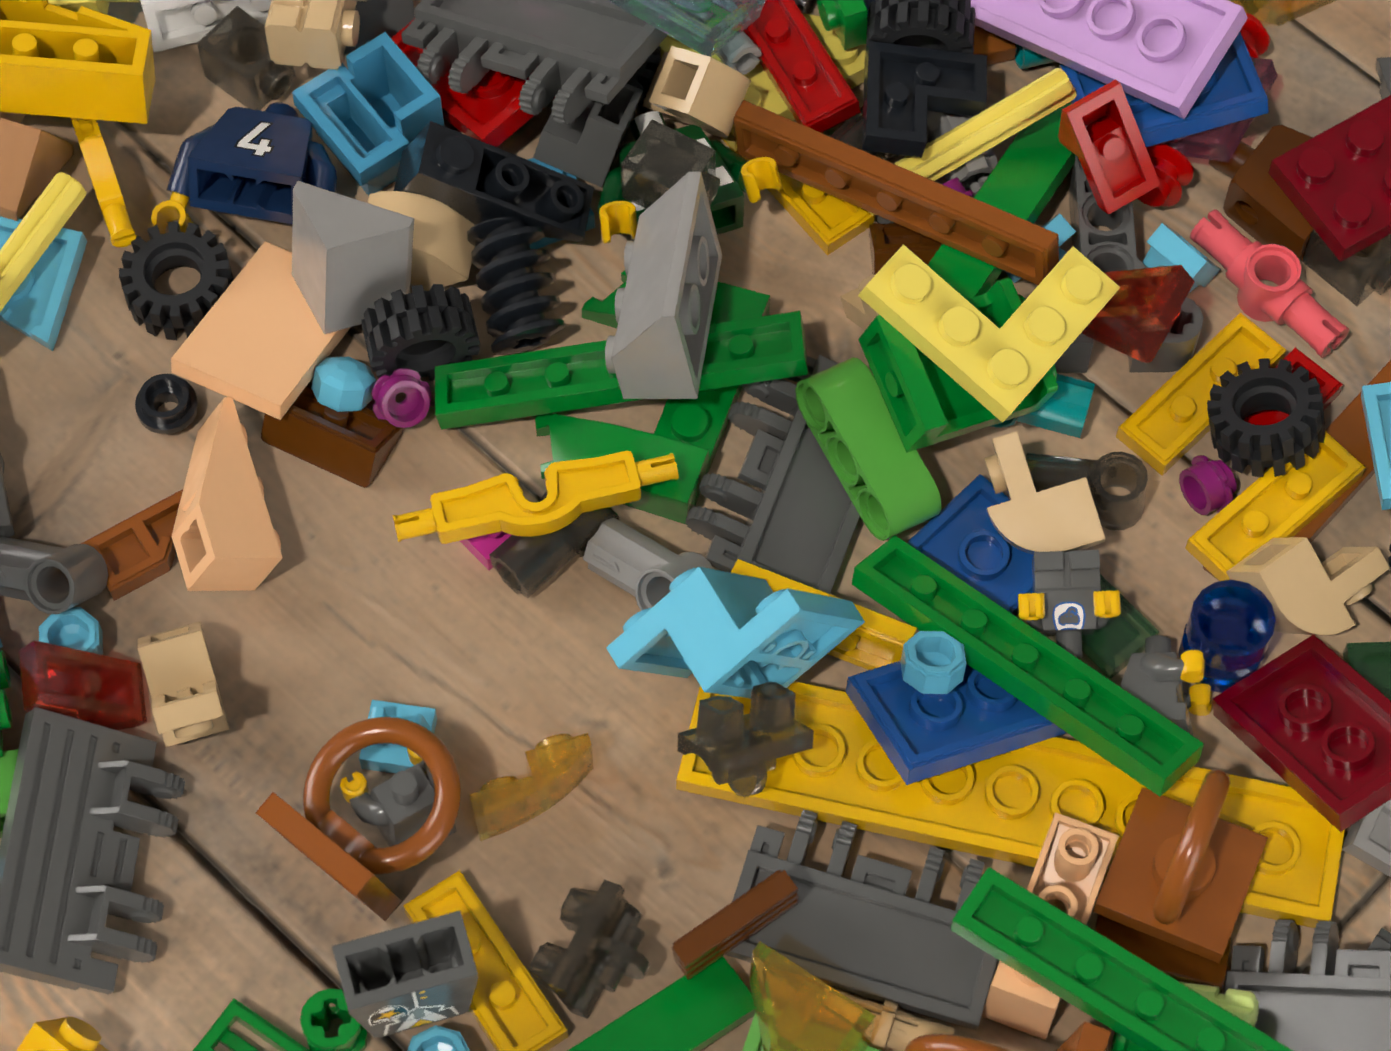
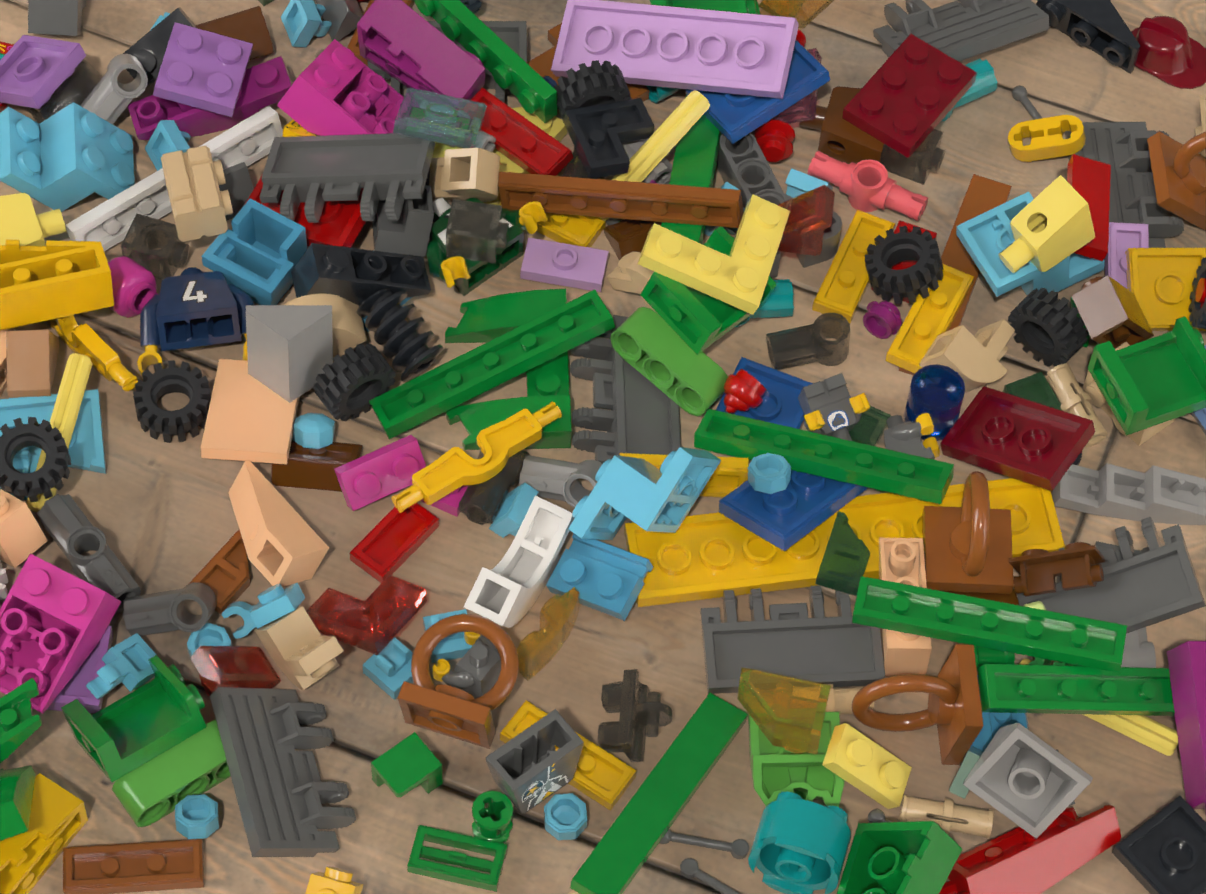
camera: 25 degrees left, 5 degrees down
(164, 389) = (199, 471): black plate -> none
(171, 614) = (272, 605): none -> medium azure plate
(185, 99) = (131, 286): none -> dark pink head
(248, 911) = (407, 767): none -> green panel
(293, 752) = (390, 667): none -> medium azure tile
(295, 683) = (368, 622): none -> clear red plate
(384, 577) = (393, 541): none -> red tile
(402, 472) = (380, 472): none -> dark pink plate
(409, 411) = (365, 427): magenta plate -> none
(513, 699) = (522, 574): none -> white arch
(561, 593) = (513, 510): none -> medium azure tile
(634, 728) = (602, 574): none -> dark azure plate
(667, 296) = (508, 305): light grey slope -> none
(735, 923) = (717, 666): reddish brown tile -> none
(746, 746) = (677, 553): clear smoke hips -> none
(791, 259) = (564, 264): none -> lavender plate
(952, 528) = (742, 392): none -> red plate
(992, 824) = (843, 559): none -> clear green tile
(1042, 520) = (792, 369): tan brick -> none
(1108, 146) = (745, 129): red slope -> none
(1323, 958) = (1073, 563): none -> reddish brown hinge

